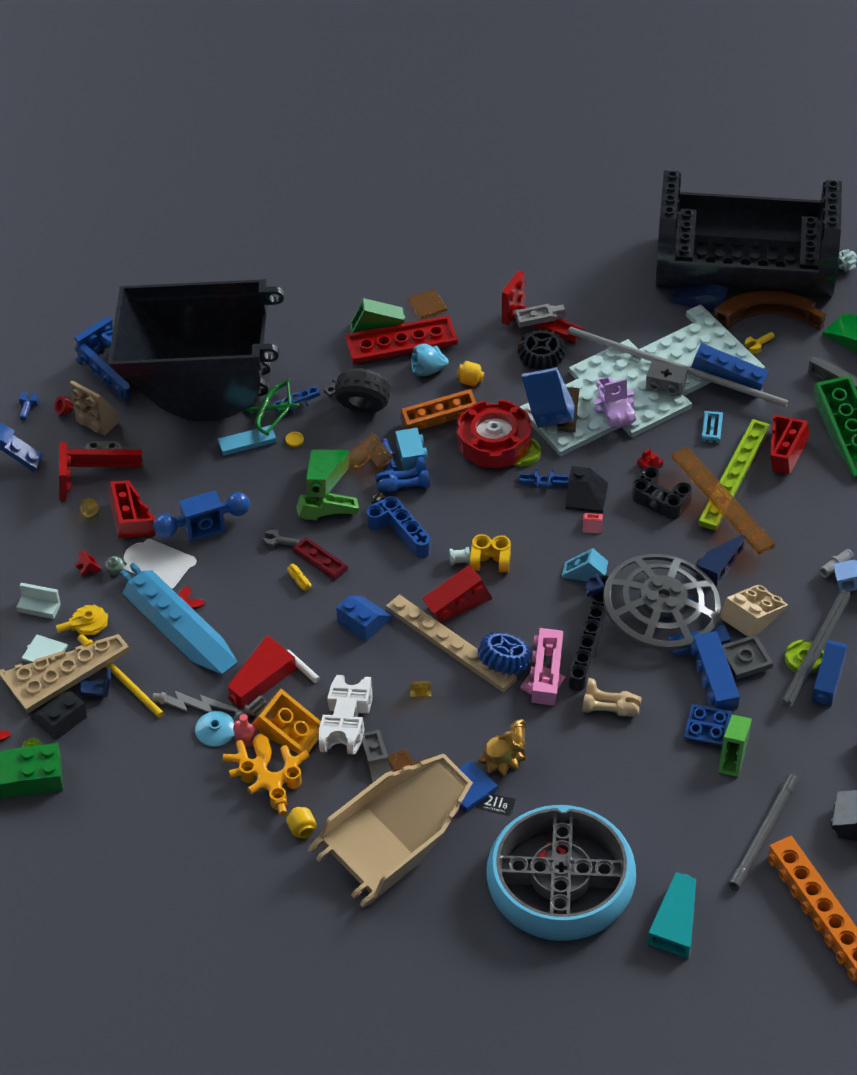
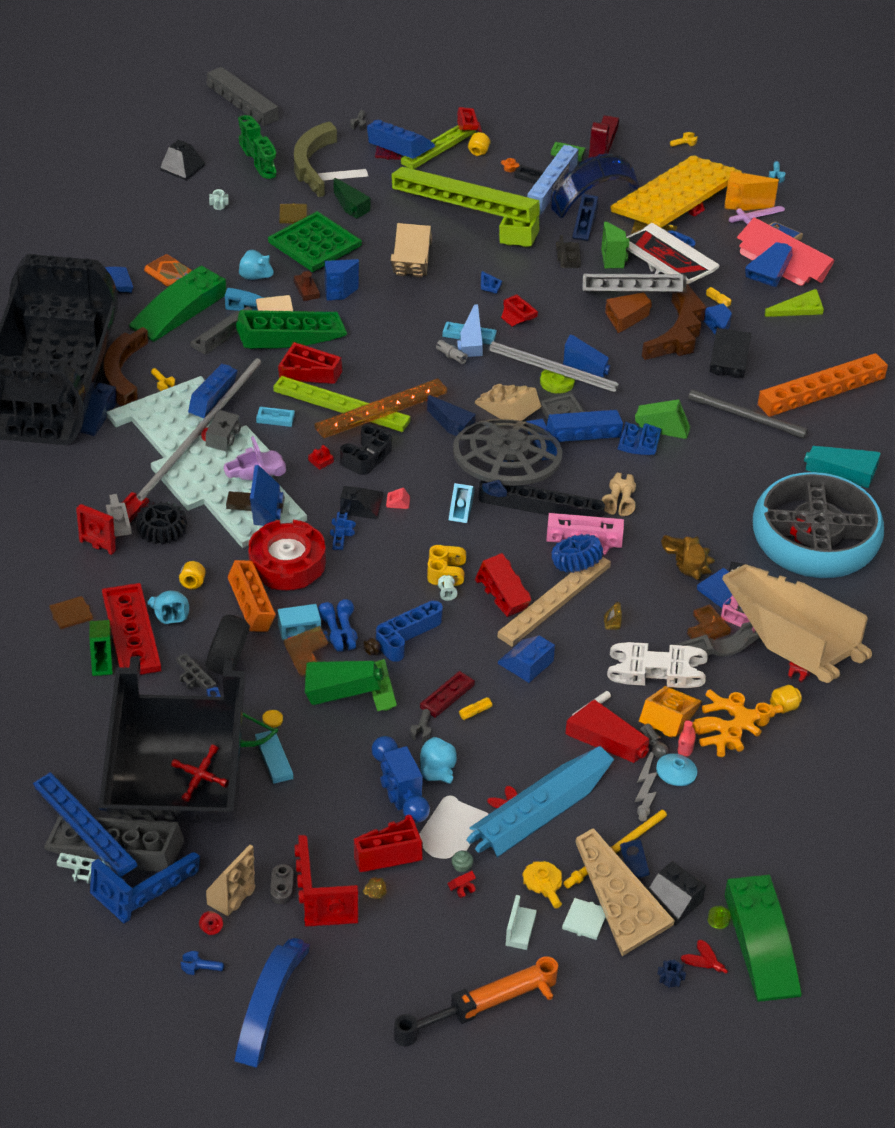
camera: 95 degrees left, 5 degrees down
(230, 545) = (437, 760): none -> medium azure piece

